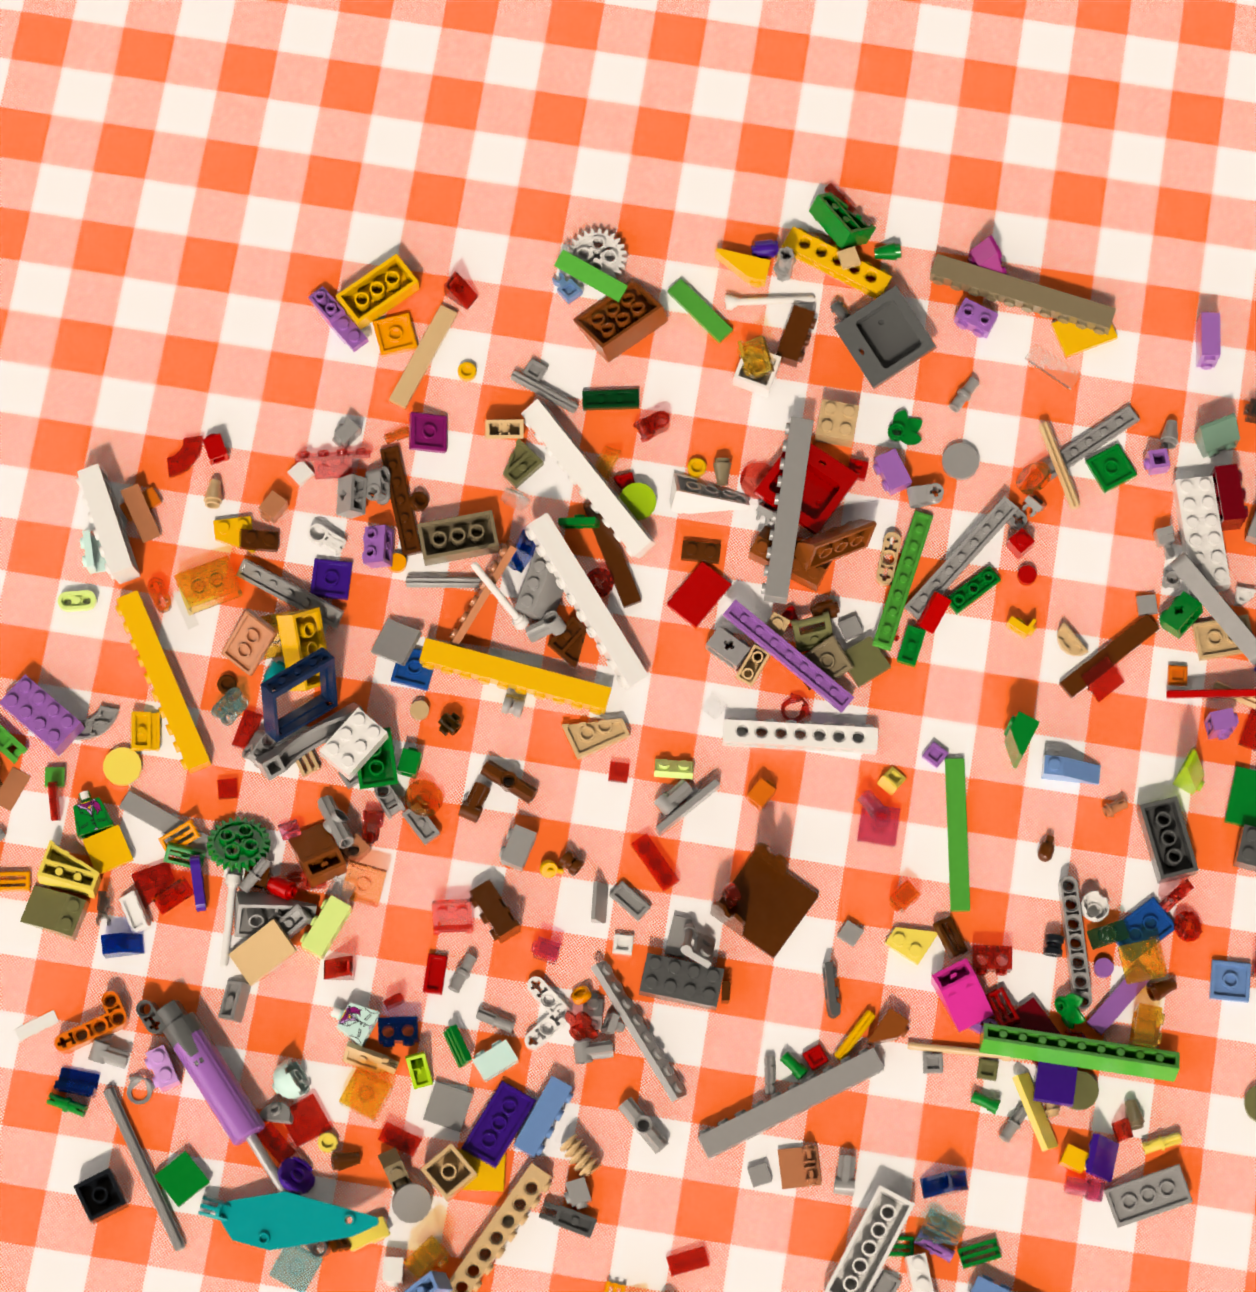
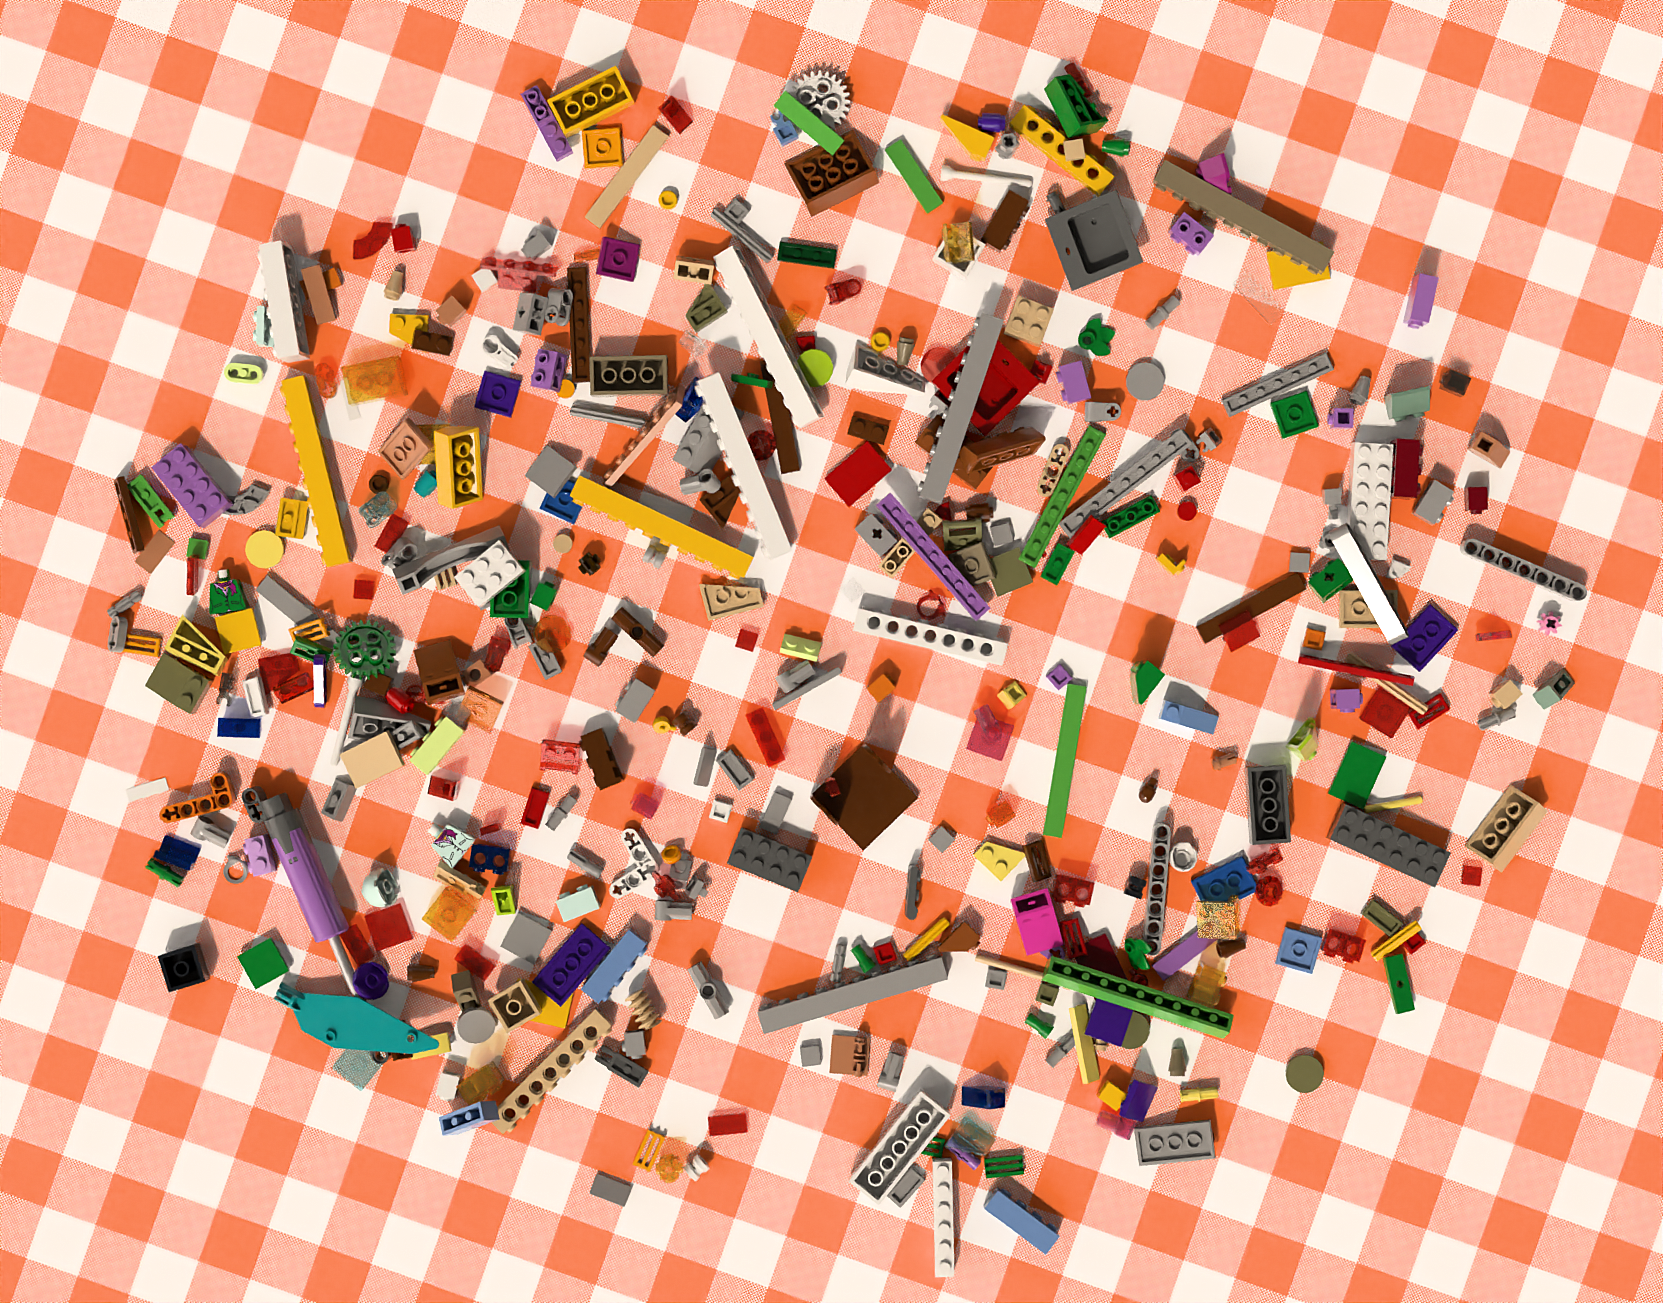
camera: 10 degrees right, 15 degrees up
(144, 1169) = (229, 946): light grey axle -> none
(255, 874) = (374, 685): light grey axle -> none
(277, 1112) = (362, 916): light grey plate -> none
(288, 591) = (454, 401): light grey tile -> none
(289, 829) = (416, 642): clear pink tile -> none
(316, 662) = (438, 502): dark blue window -> none
(327, 1142) = (406, 952): light yellow tile -> none
(335, 821) = (461, 644): light grey piece -> none
(418, 501) = (596, 329): reddish brown tile -> none
(457, 1046) = (544, 883): green tile -> none
(519, 620) = (676, 470): white piece -> none
(639, 1031) = (720, 899): light grey plate -> none
(703, 947) = (795, 832): light grey plate -> none
(725, 996) = (810, 876): reddish brown tile -> none
(1033, 477) = (1214, 414): clear orange tile -> none
(1059, 465) = (1242, 404): tan axle -> none
(1069, 642) = (1214, 587): tan plate -> none
(1103, 968) = (1179, 916): medium lavender tile -> none
(1108, 934) = (1190, 886): clear green tile -> none
(1122, 1130) = (1163, 1076): clear red tile -> none

